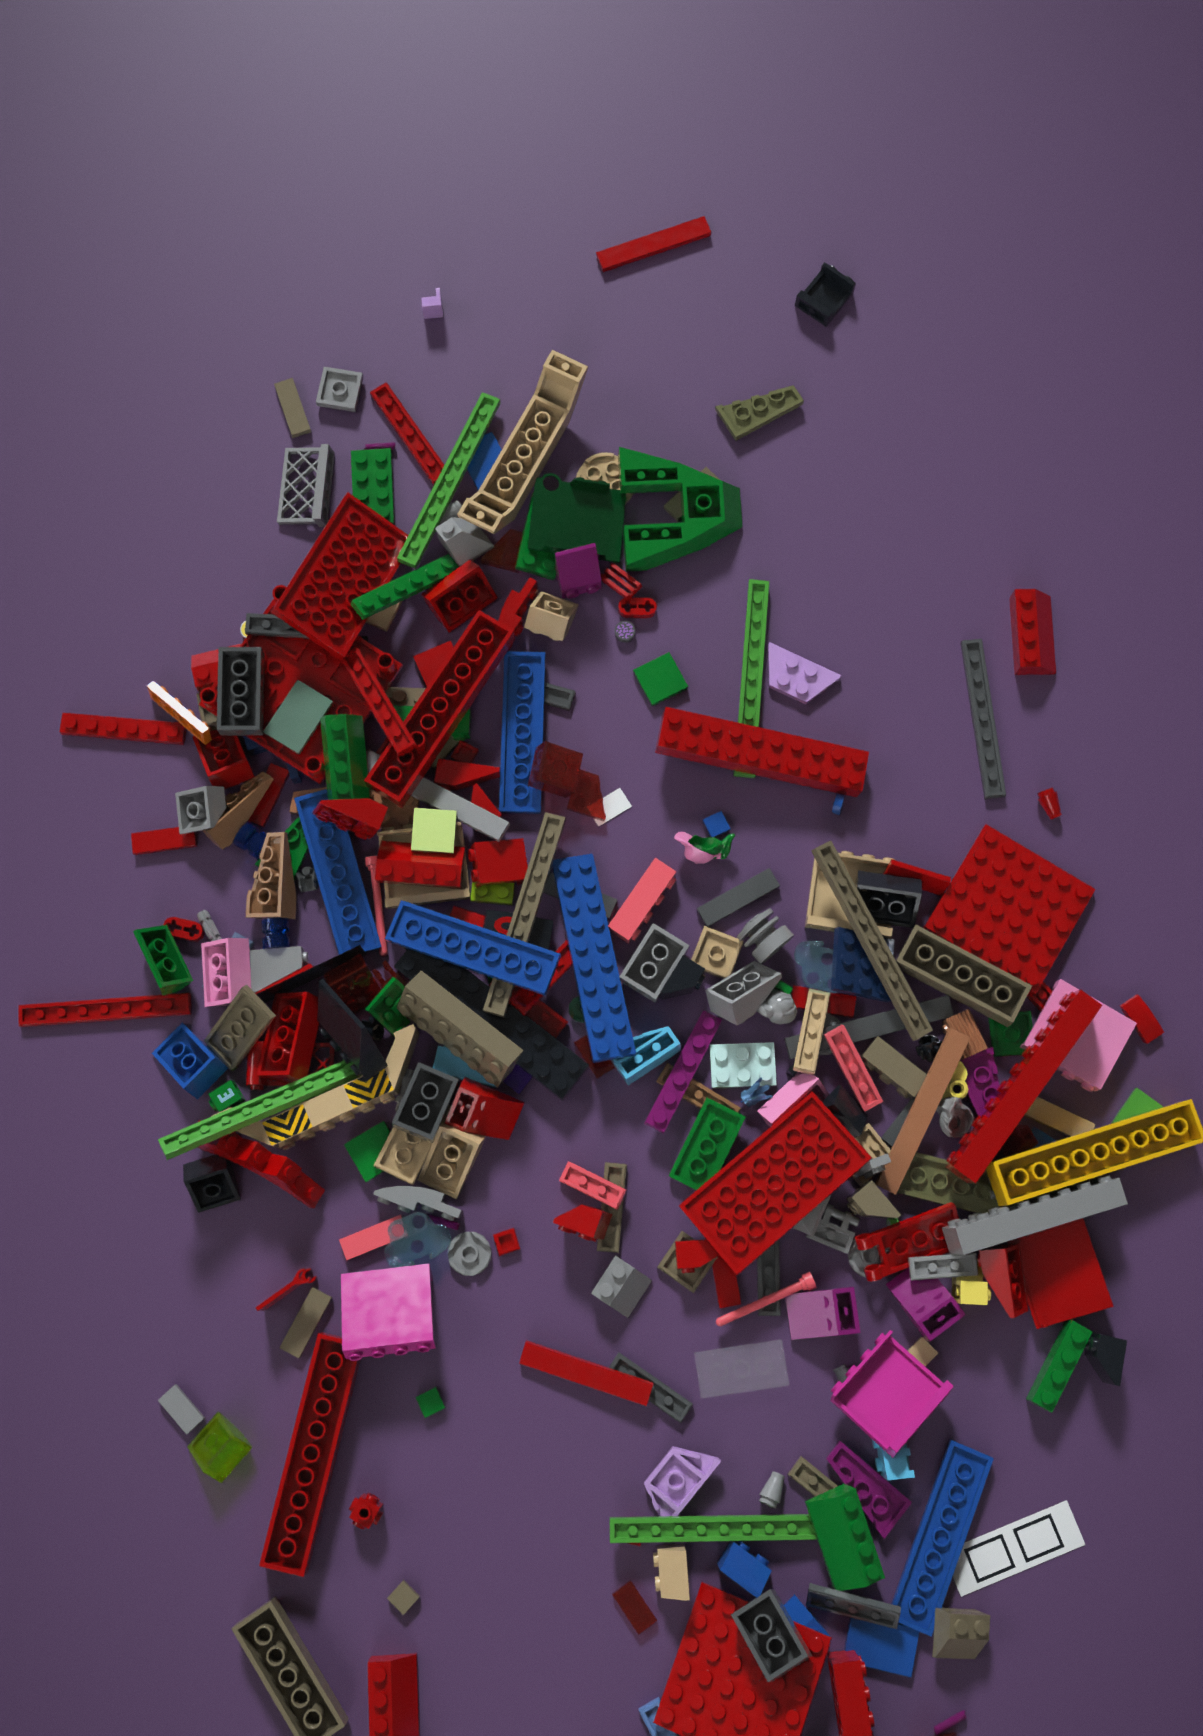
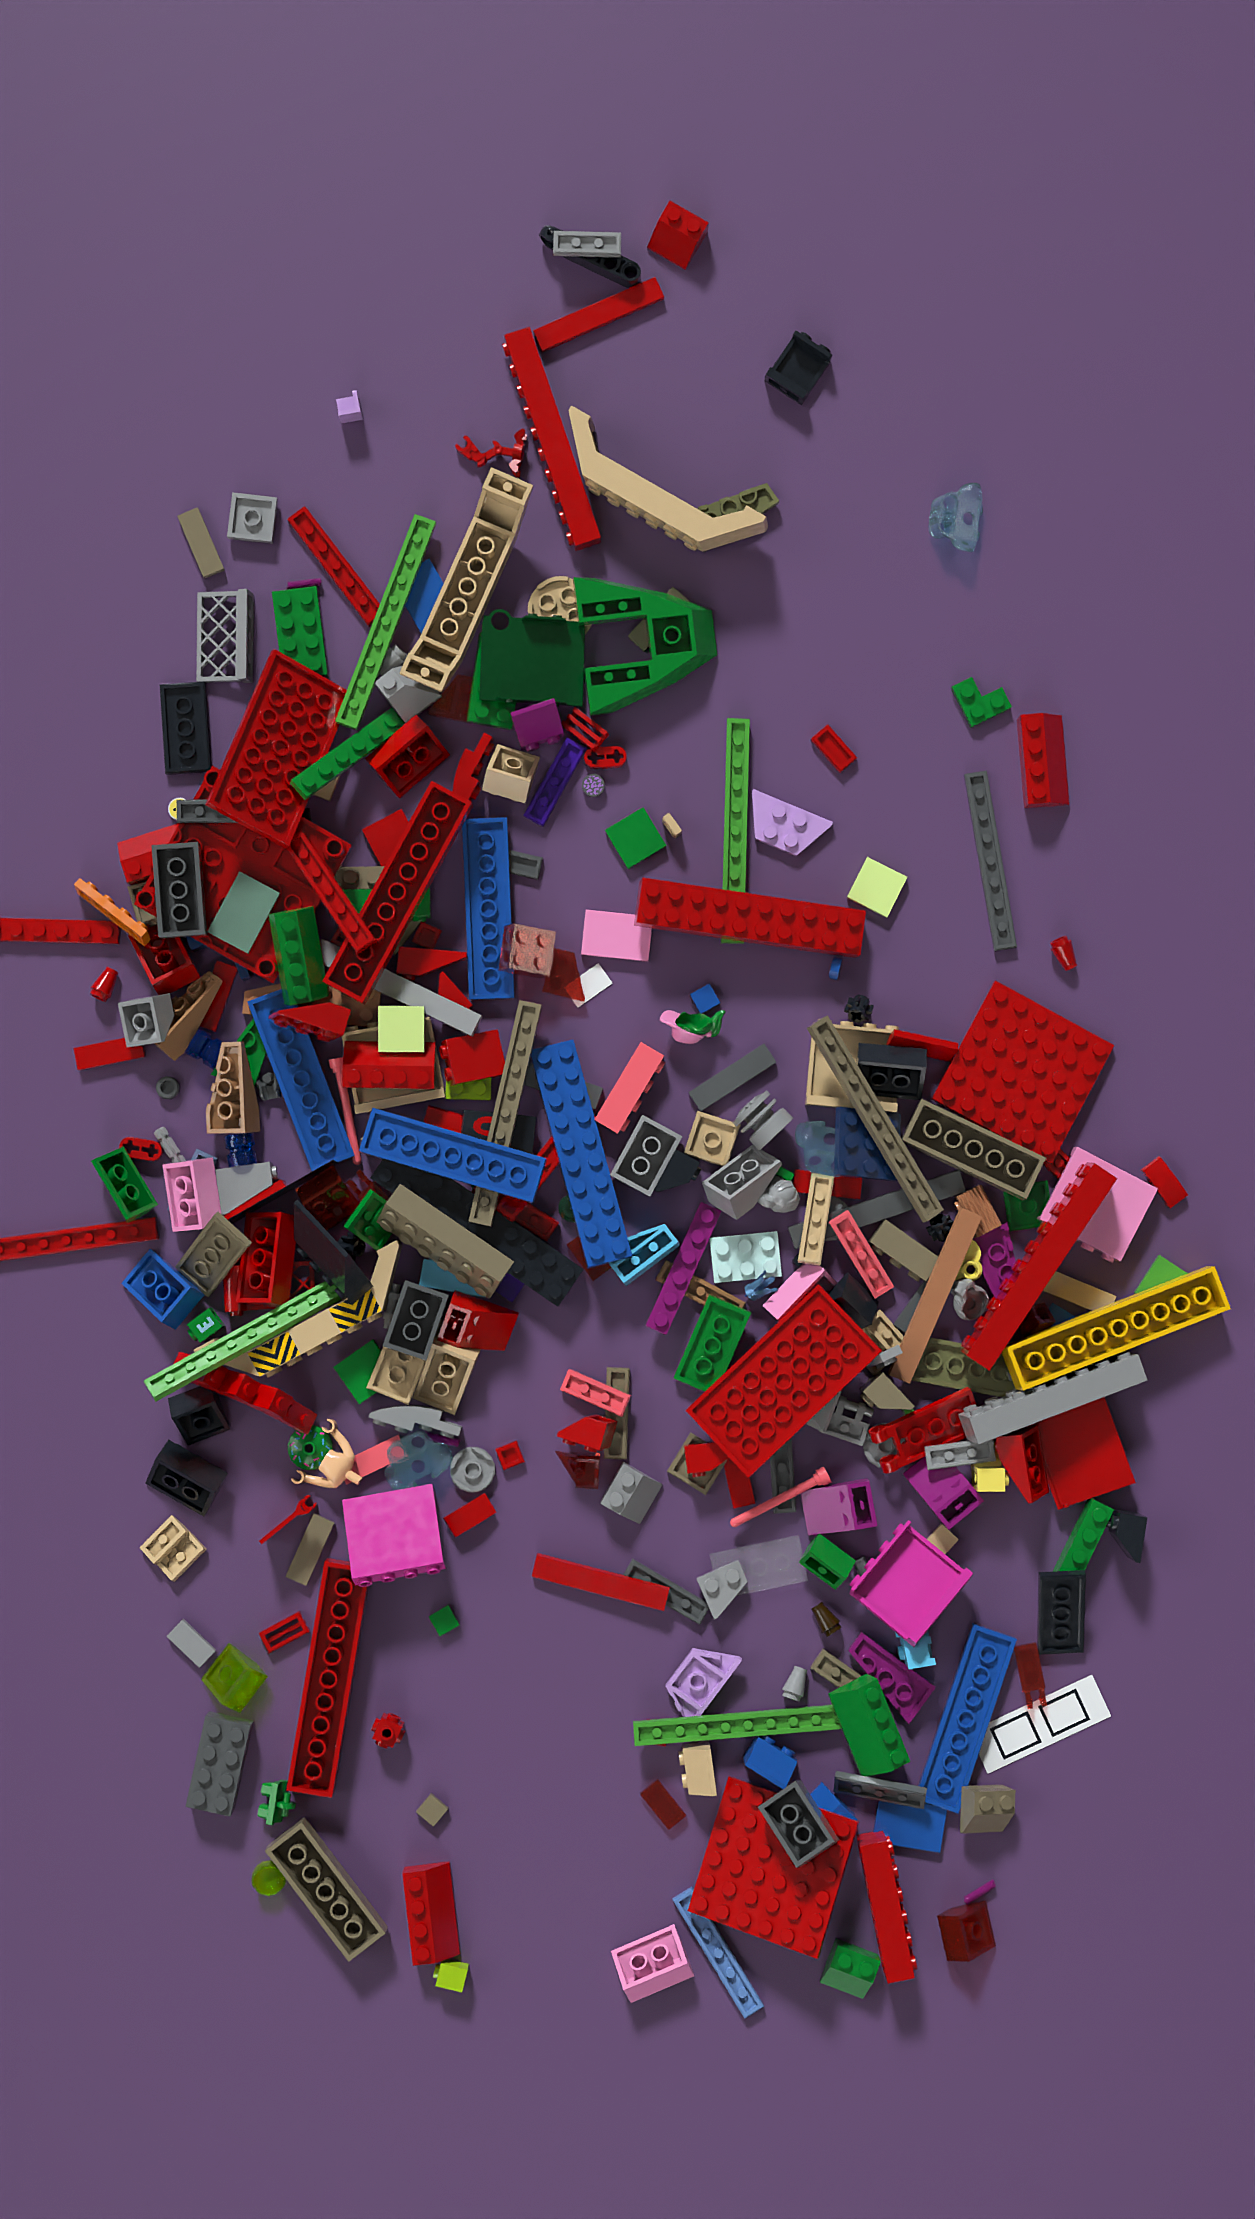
camera: 10 degrees left, 10 degrees up
(165, 779) = (104, 985): none -> red cone
(173, 1312) = (173, 1548): none -> tan slope
(192, 1243) = (186, 1477): none -> black slope
(196, 1534) = (219, 1763): none -> dark grey brick
(214, 875) = (167, 1087): none -> dark grey tile
(232, 1659) = (267, 1878): none -> clear neon green hair
(250, 1580) = (278, 1802): none -> green hips
(262, 559) = (185, 728): none -> black tile
(291, 1395) = (302, 1623): none -> red tile
(323, 1230) = (321, 1446): none -> green dish
(336, 1240) = (335, 1465): none -> light nougat piece
(463, 1298) = (469, 1515): none -> red slope
(575, 349) = (517, 452): none -> red piece
(575, 1259) = (582, 1468): none -> clear red slope
(590, 626) = (555, 782): none -> dark purple tile
(607, 340) = (552, 439): none -> red brick
(637, 764) = (615, 936): none -> bright pink tile
(647, 183) = (587, 244): none -> light grey tile
(655, 204) = (597, 264): none -> black piece
(694, 669) = (671, 825): none -> tan tile
(698, 395) = (654, 503): none -> tan slope
(705, 1385) = (722, 1586): none -> light grey wing
(726, 183) = (678, 235): none -> red slope
(805, 1426) = (826, 1620): none -> dark brown cone
(809, 1366) = (830, 1562): none -> green brick
(843, 612) = (833, 748): none -> red tile
(858, 841) = (859, 1008): none -> black gear
(878, 735) = (877, 887): none -> yellowish green tile
(952, 421) = (958, 503): none -> clear light blue piece
(975, 585) = (978, 707): none -> green plate
(1006, 1493) = (1030, 1672): none -> clear red hinge
(1038, 1432) = (1061, 1612): none -> black tile

